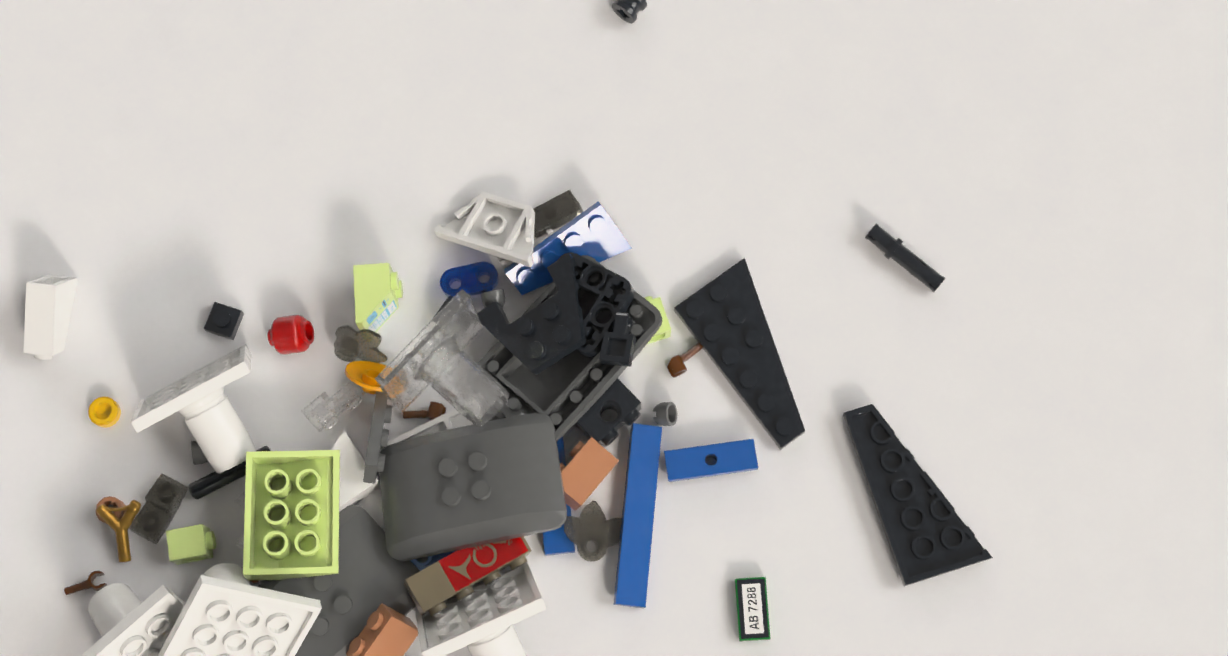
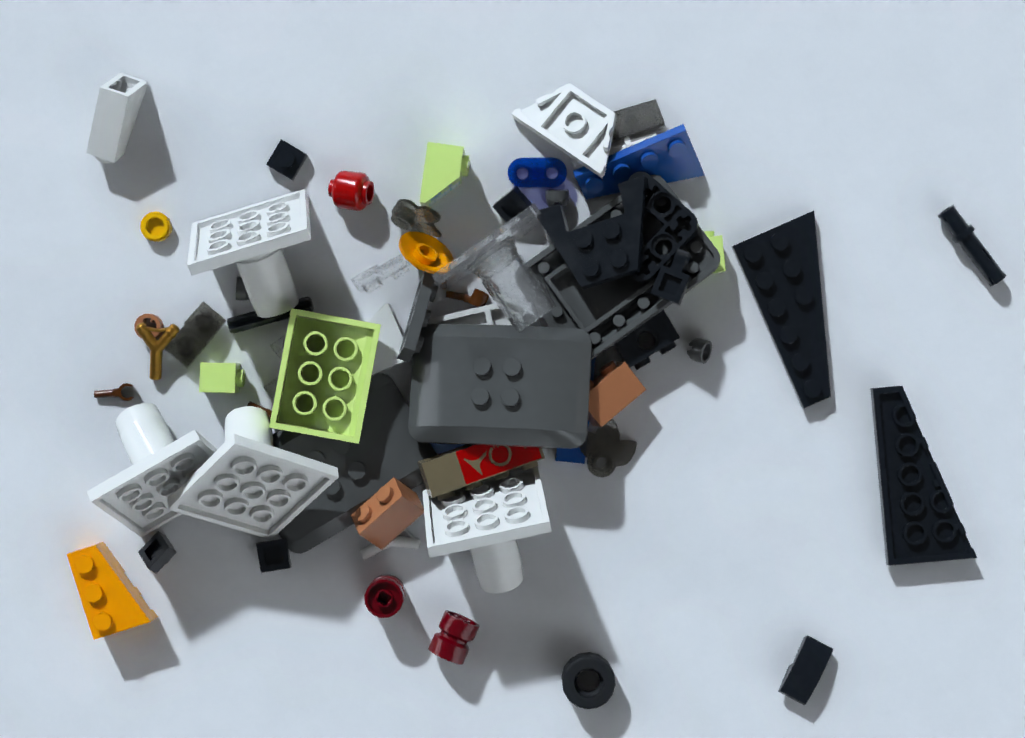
camera: 15 degrees right, 15 degrees up
(638, 516) = (652, 442): blue tile -> none
(676, 364) = (722, 304): reddish brown hand -> none
(729, 457) = (751, 406): blue tile -> none
(752, 609) = (739, 554): tile -> none

